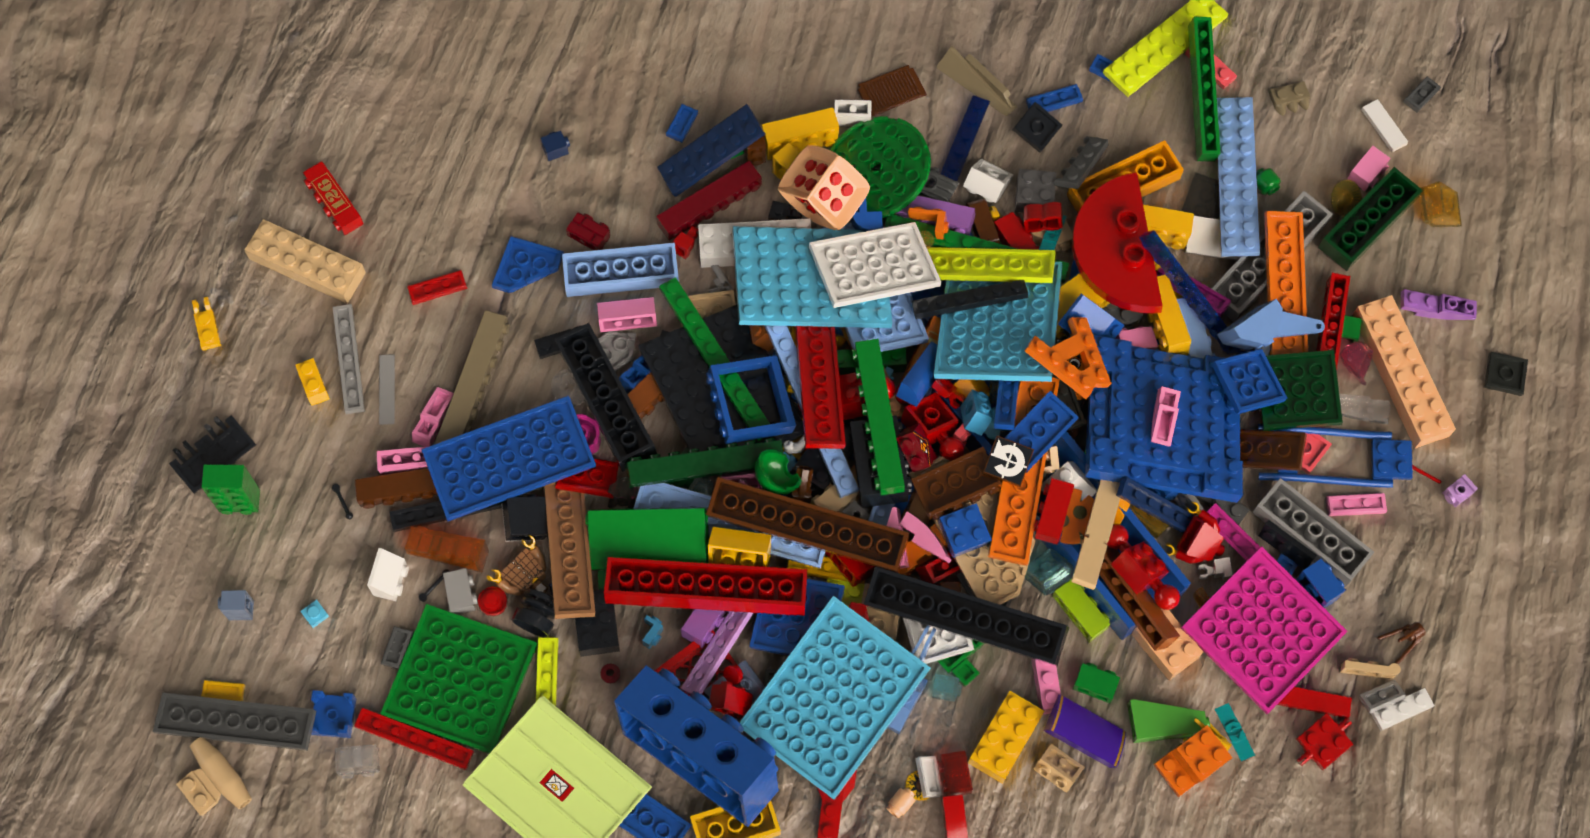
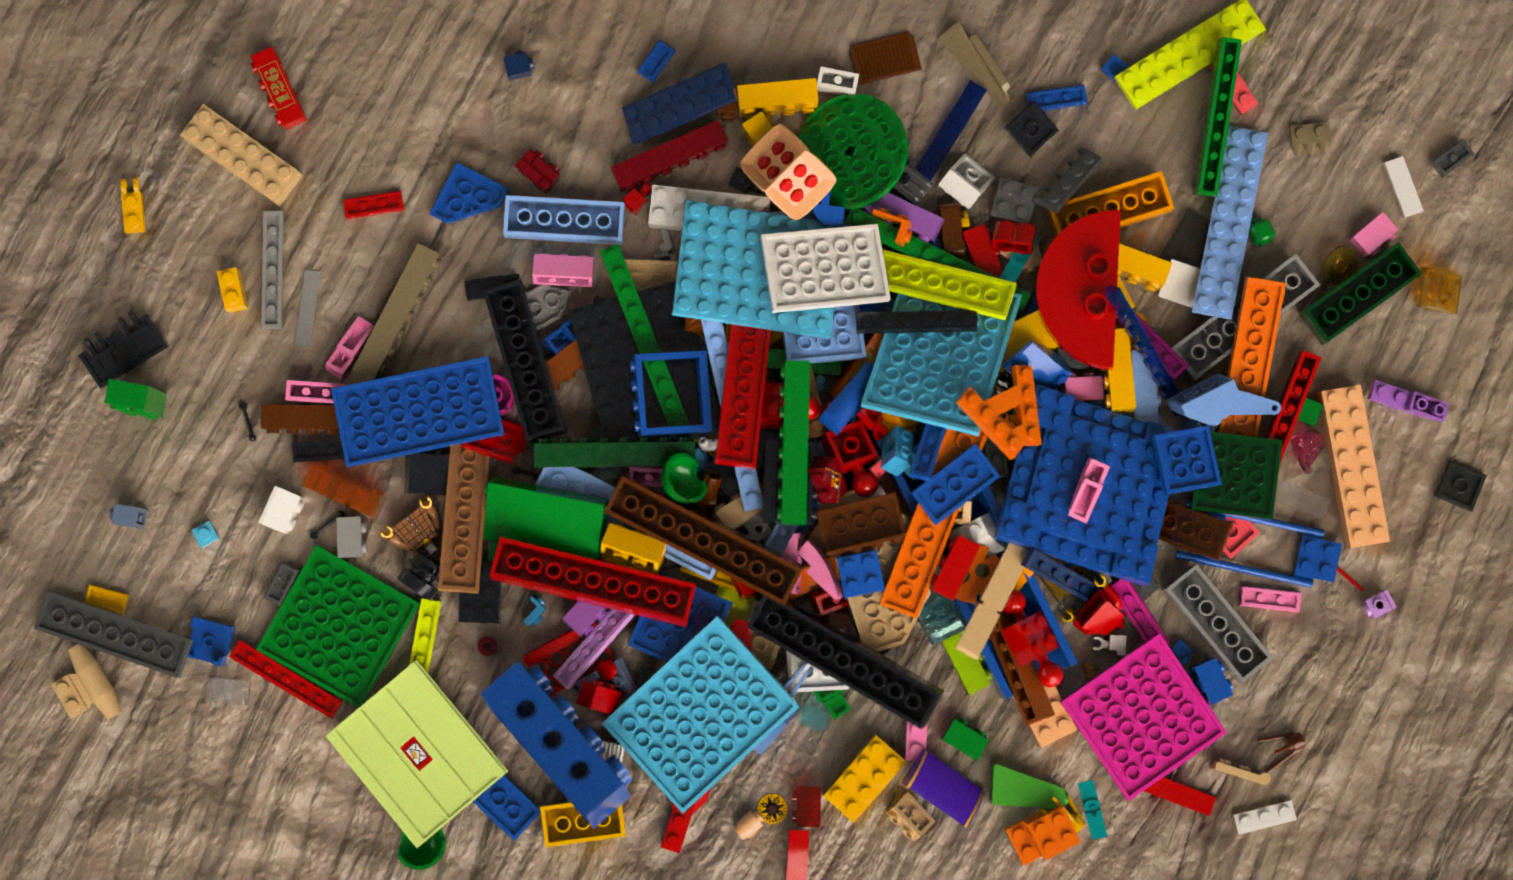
camera: 10 degrees right, 15 degrees up
(492, 601) = (382, 552): red plate -> none
(928, 238) = (887, 243): clear yellow piece -> none
(929, 776) = (781, 803): white tile -> none
(1008, 461) = (917, 513): tile -> none
(1287, 545) = (1188, 632): black plate -> none
(1324, 741) = (1178, 836): red plate -> none
(1382, 696) = (1246, 802): light grey plate -> none

